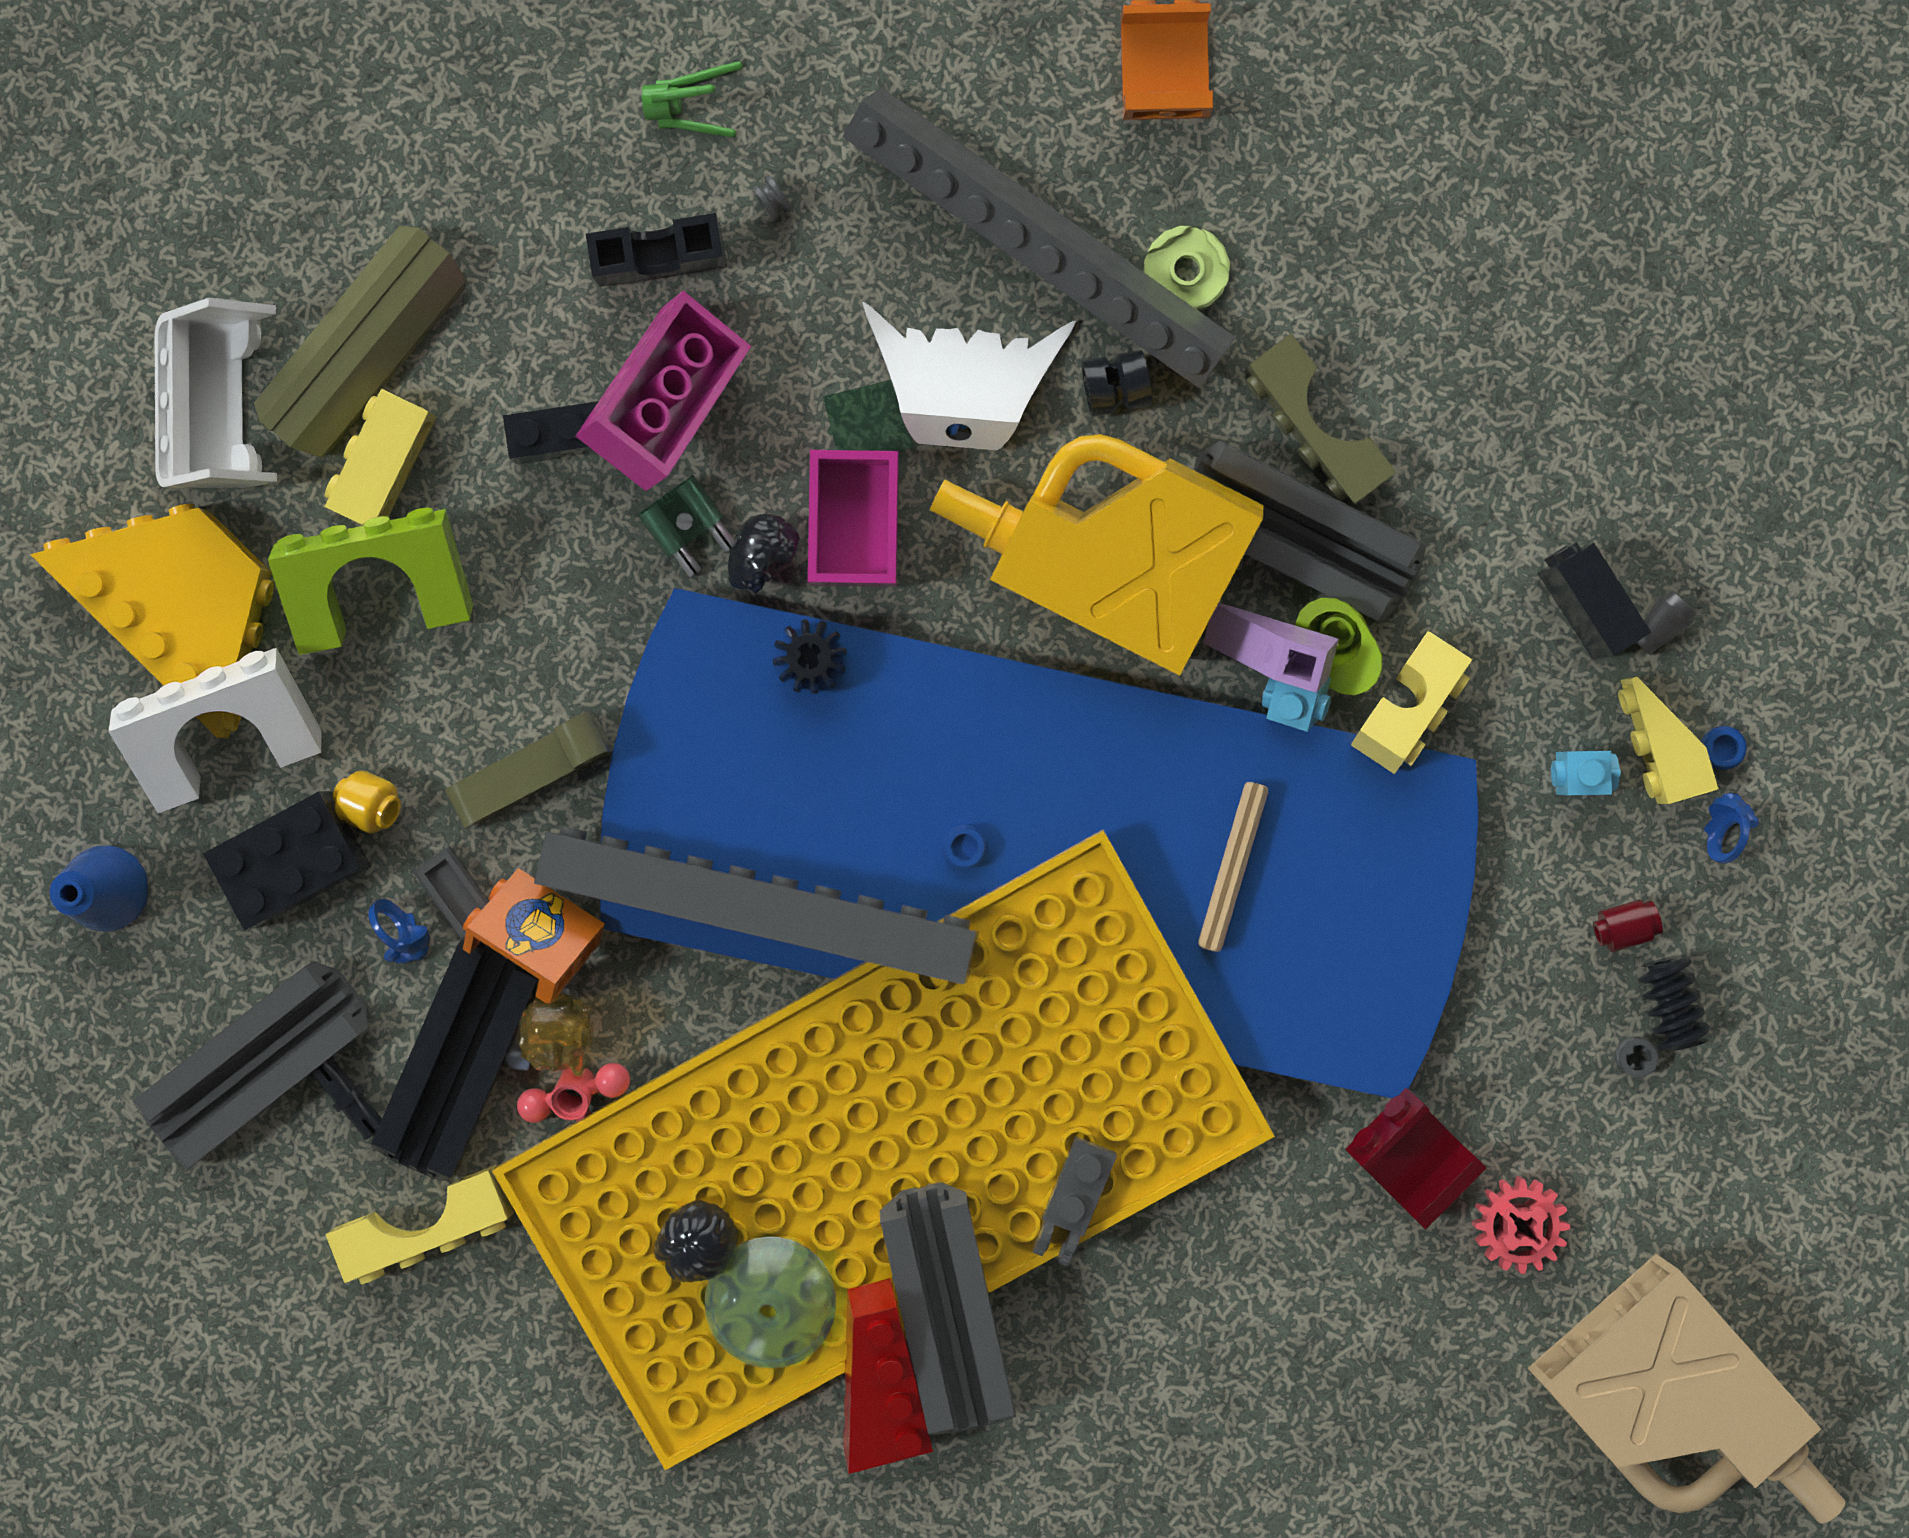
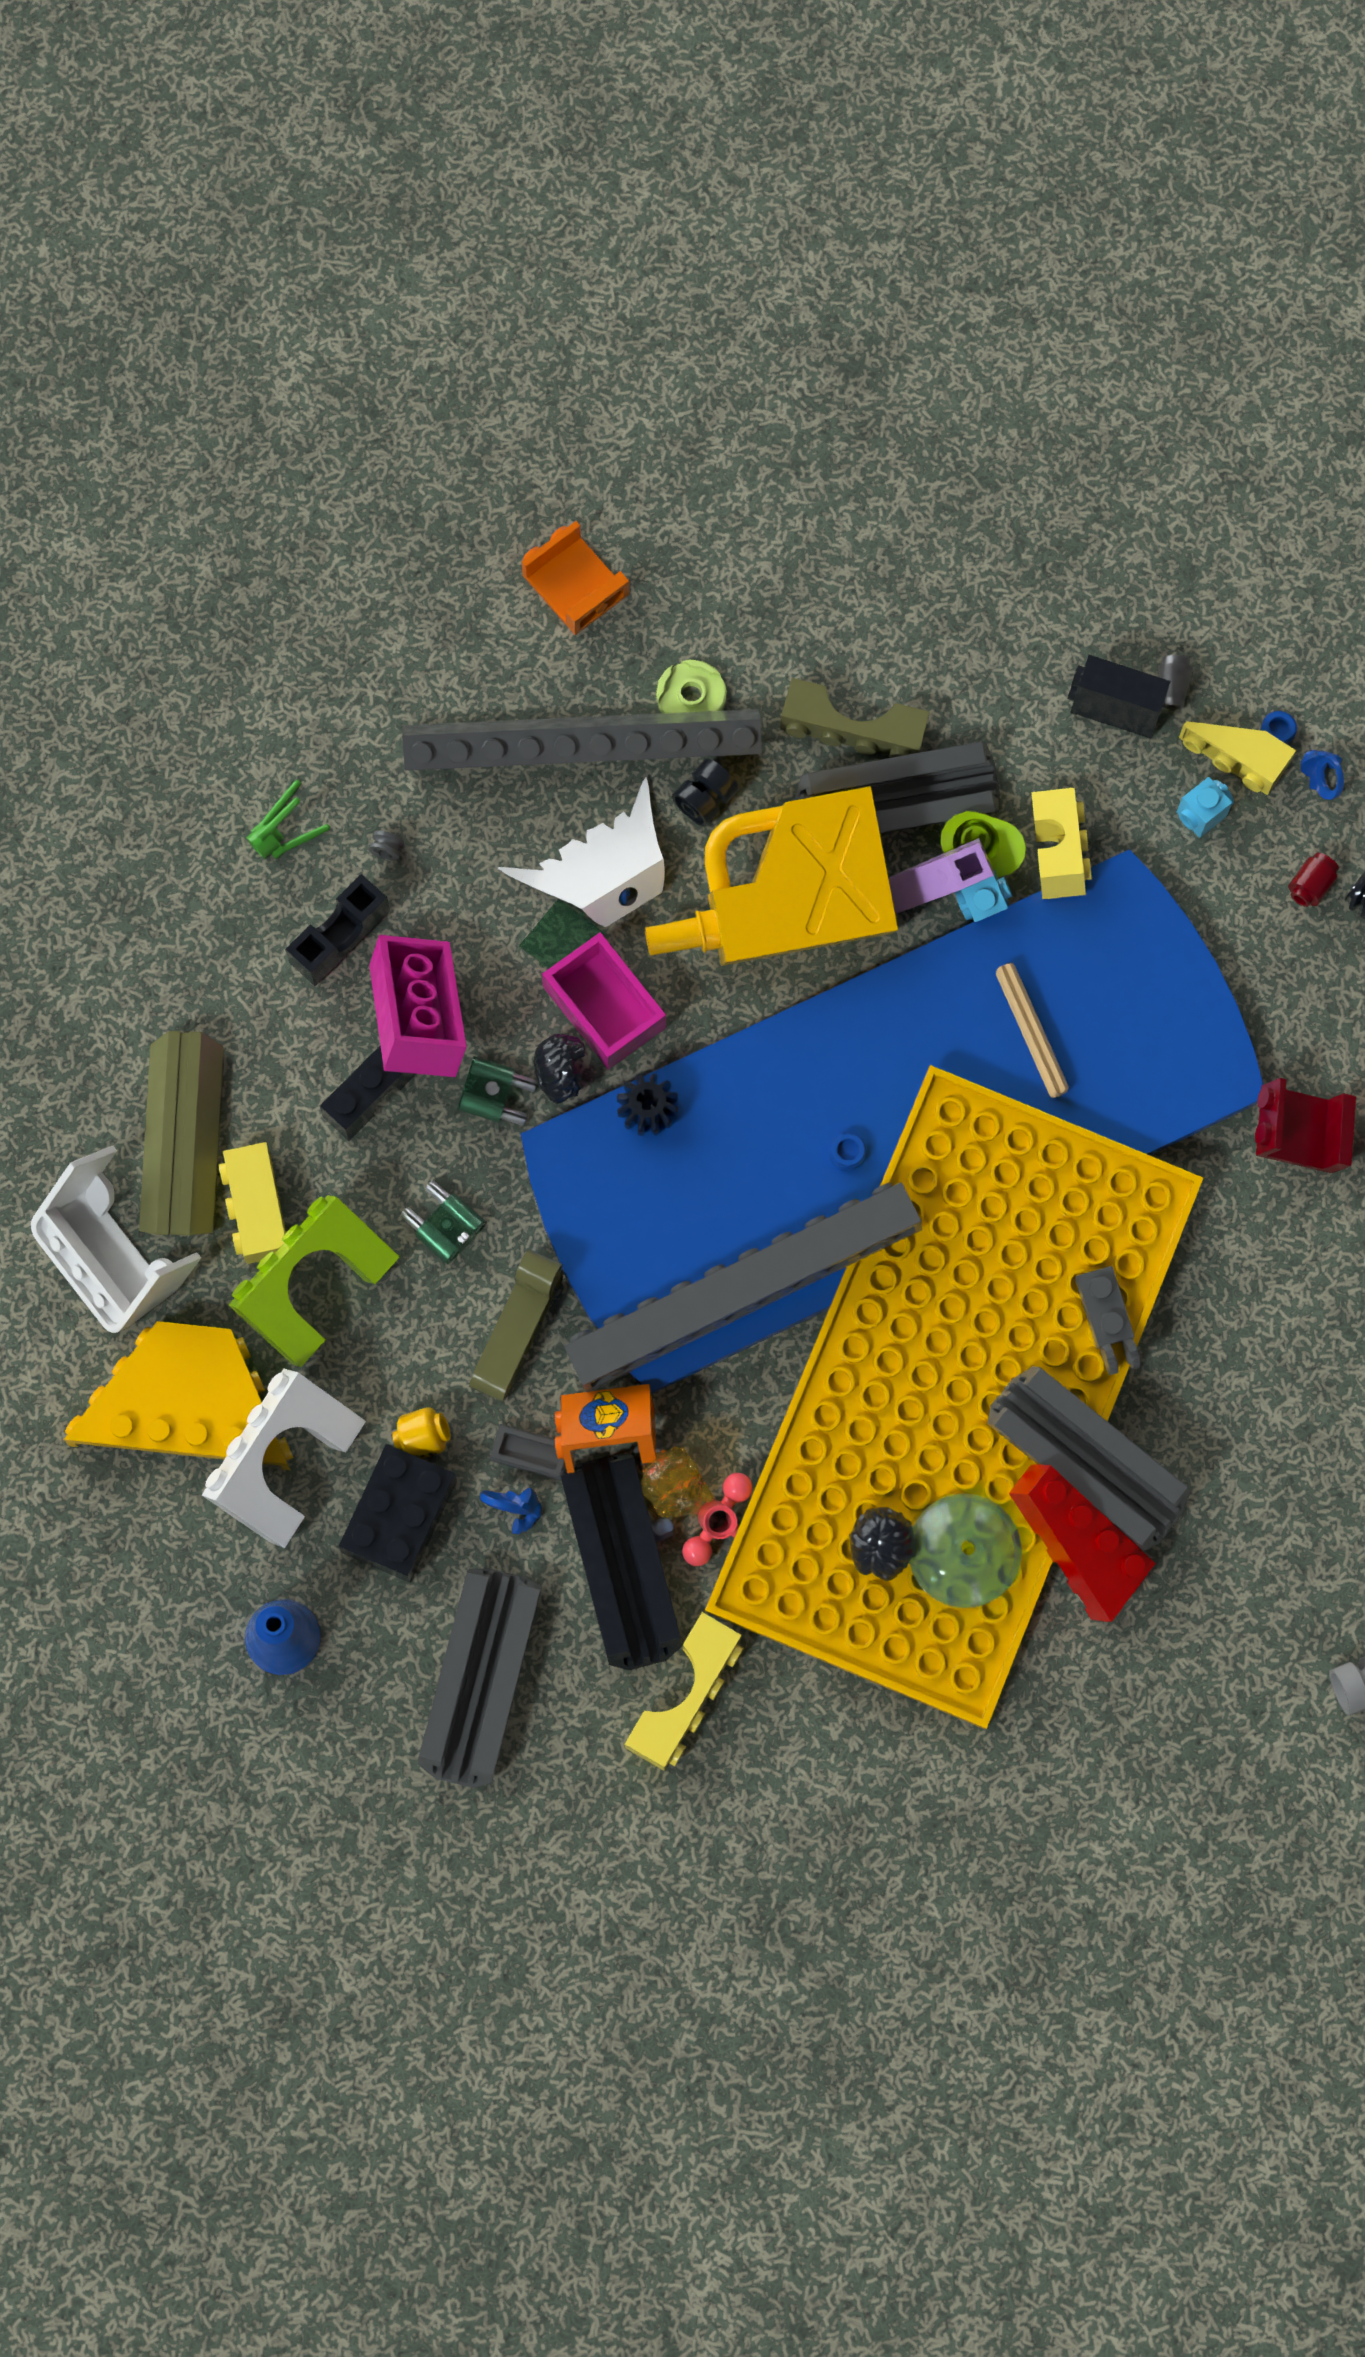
camera: 40 degrees left, 15 degrees down
(347, 1097) = (565, 1646): black pin -> none
(545, 622) = (448, 1227): none -> clear green piece

